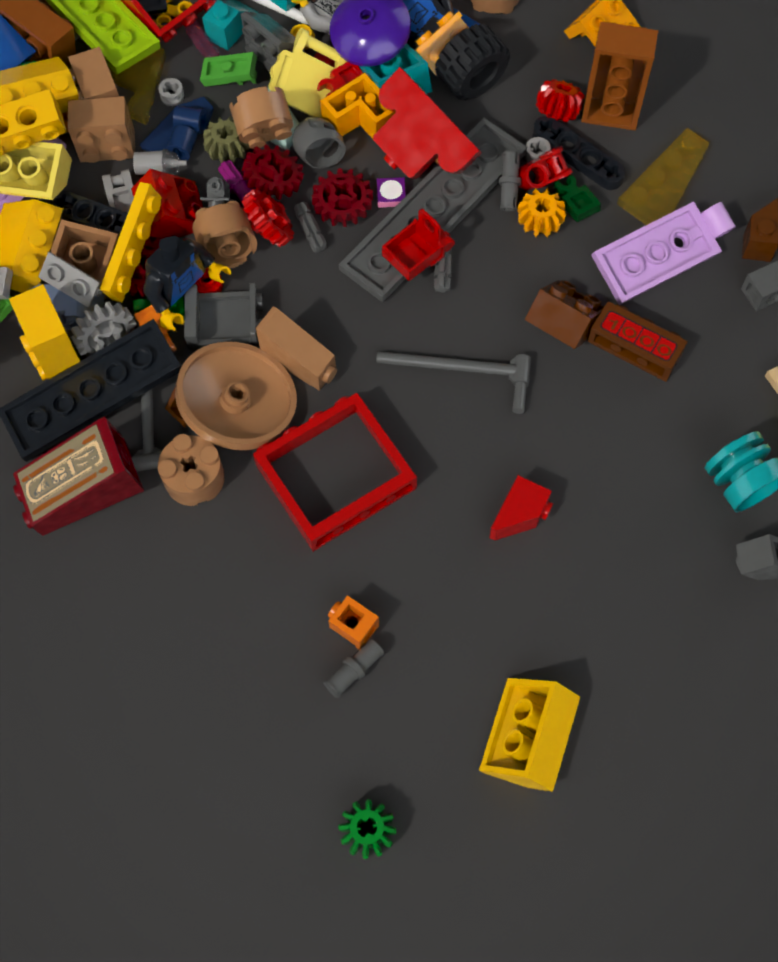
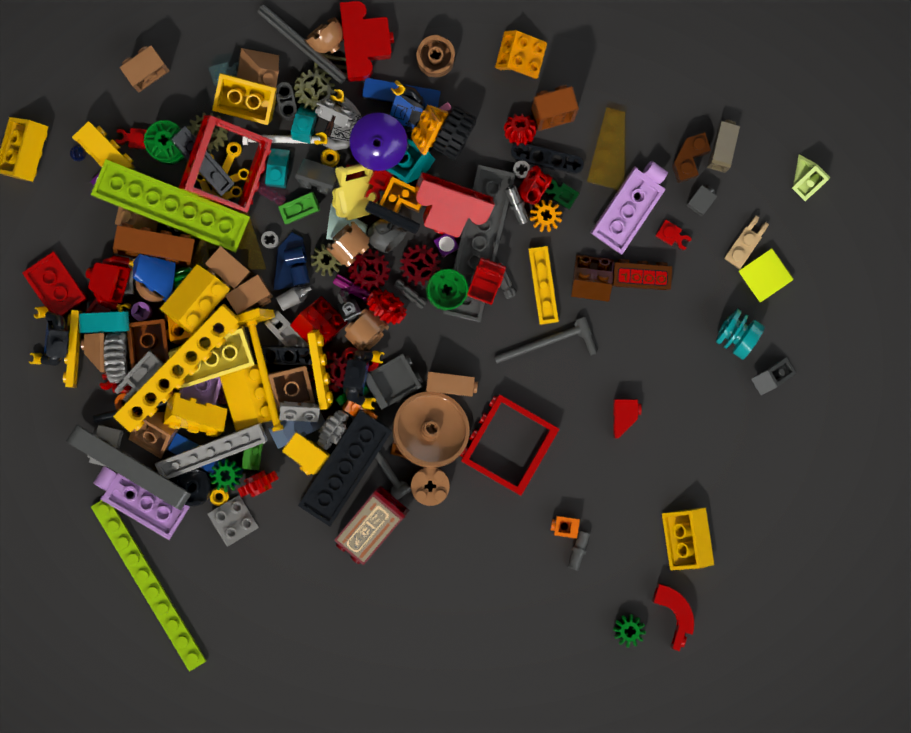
camera: 25 degrees left, 20 degrees up
(89, 155) = (250, 320): none -> yellow tile
(337, 112) = (392, 217): none -> black axle
(356, 211) = (451, 279): none -> green wheel
(462, 818) = (684, 616): none -> red arch
(493, 294) = (543, 285): none -> yellow plate
(704, 311) = (670, 233): none -> red plate

